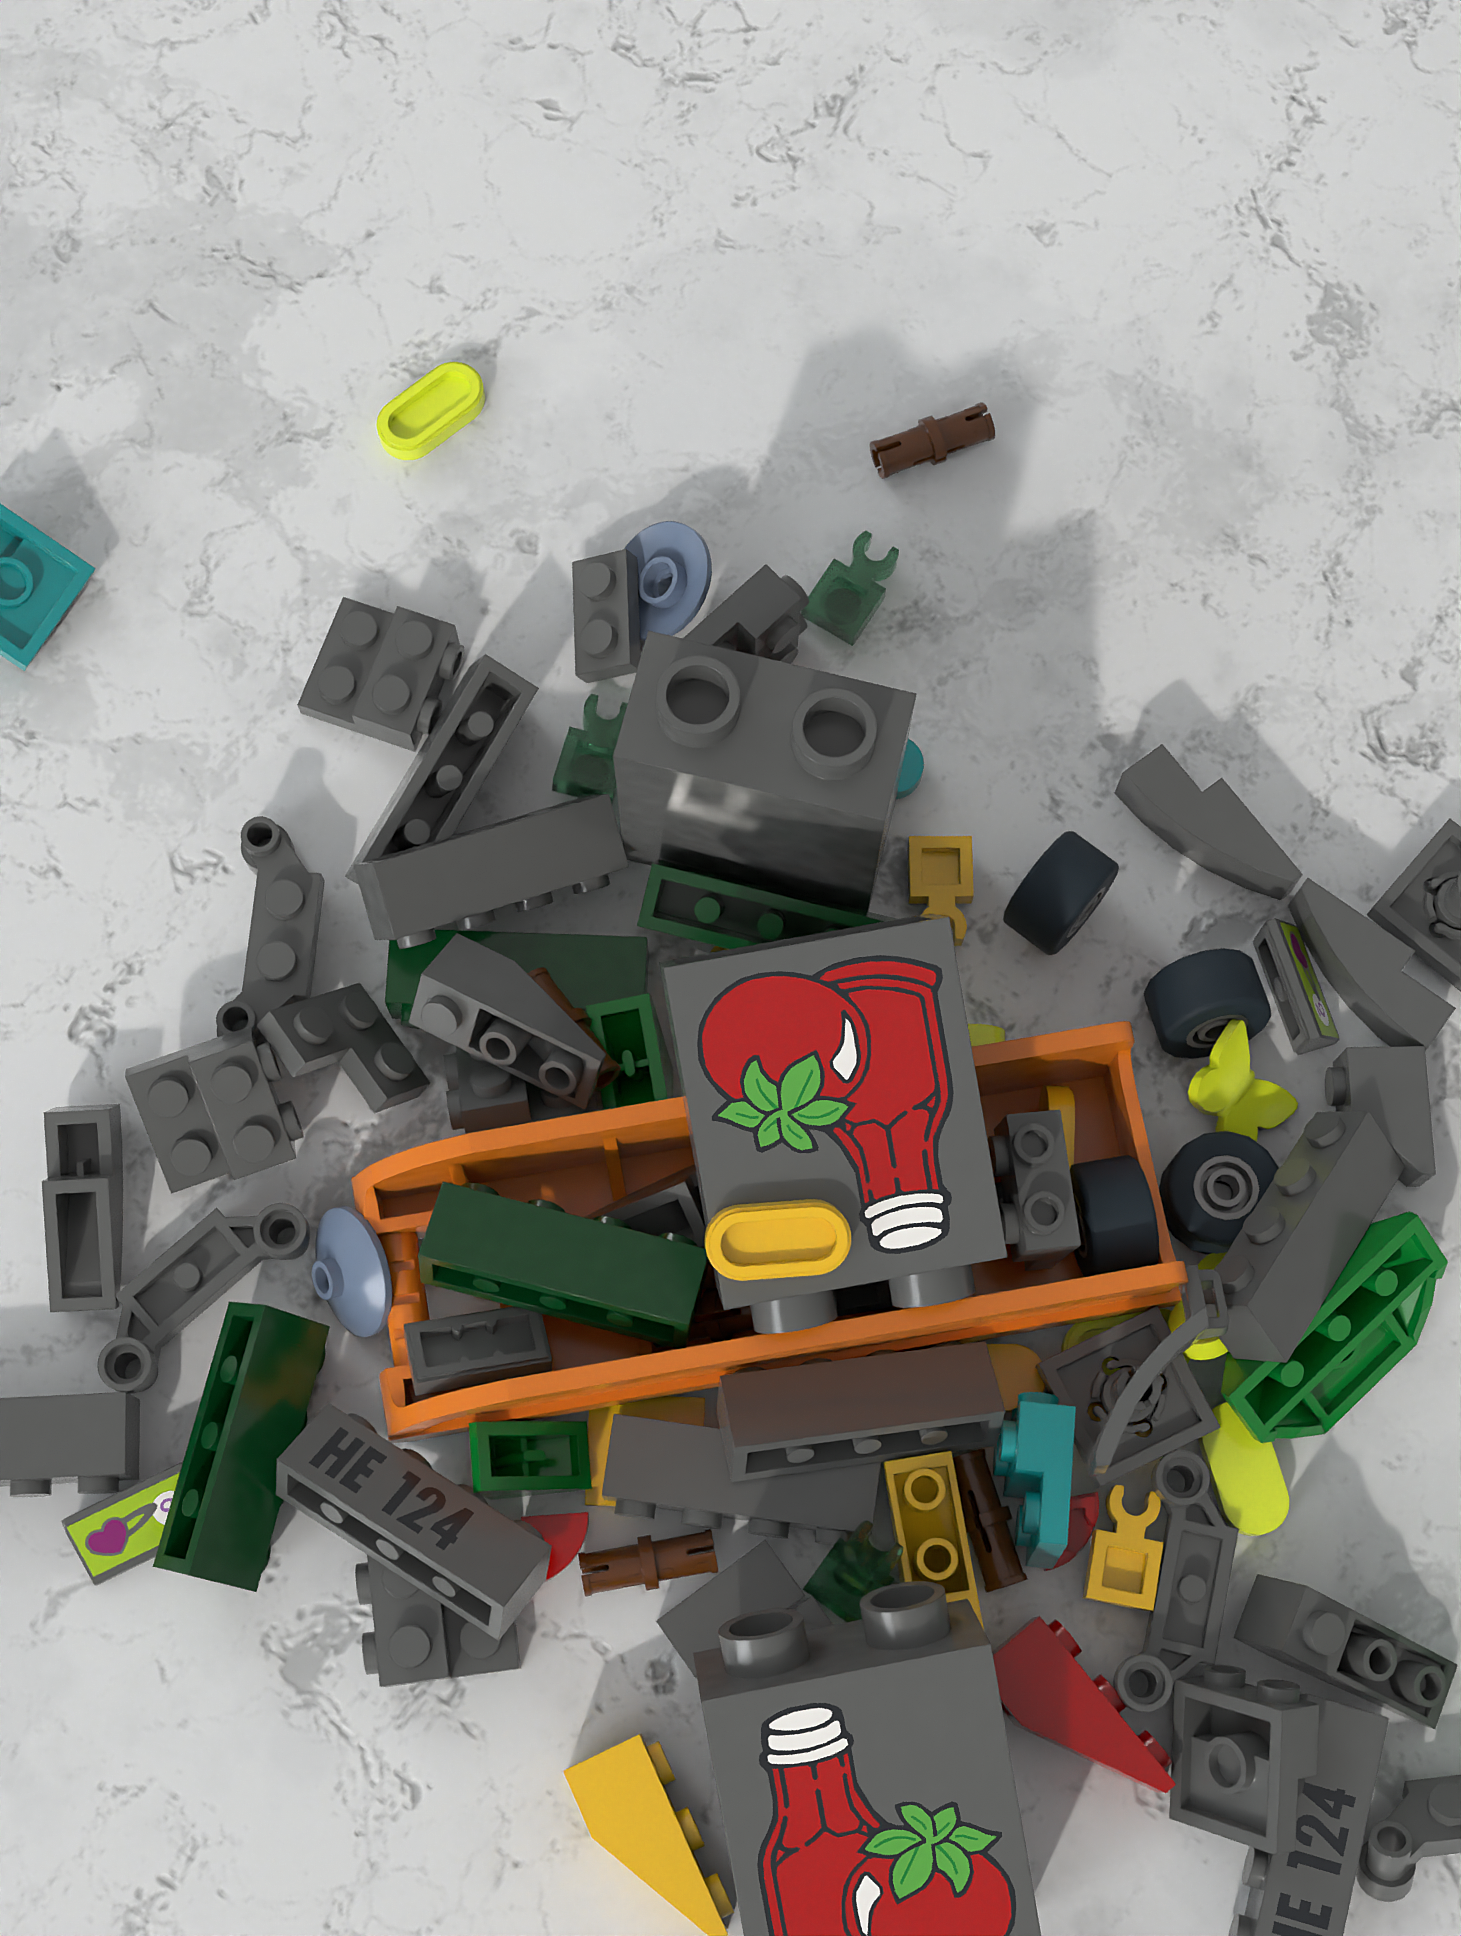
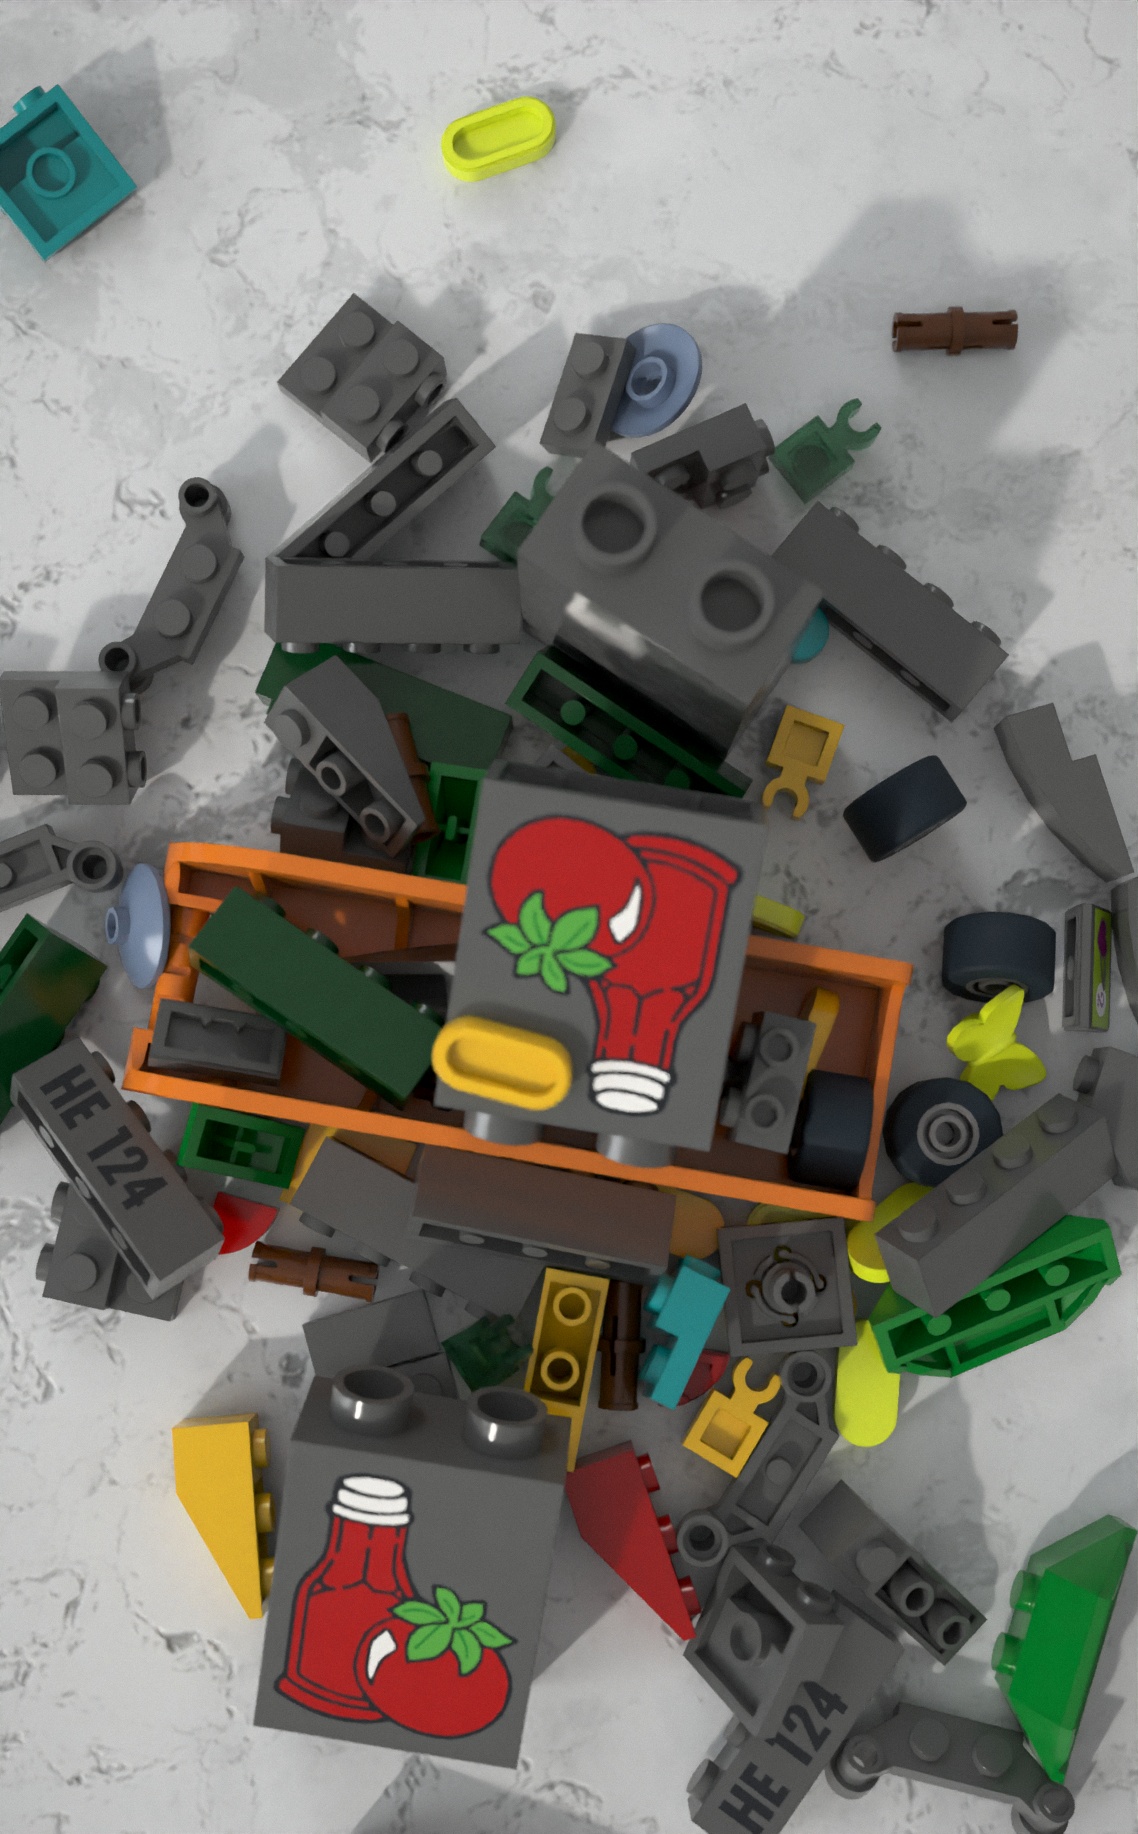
camera: 20 degrees right, 10 degrees up
(351, 1031) = (218, 705): dark grey plate -> none
(986, 719) = (891, 613): none -> dark grey brick
(1195, 1327) = (817, 1282): dark grey sword -> none

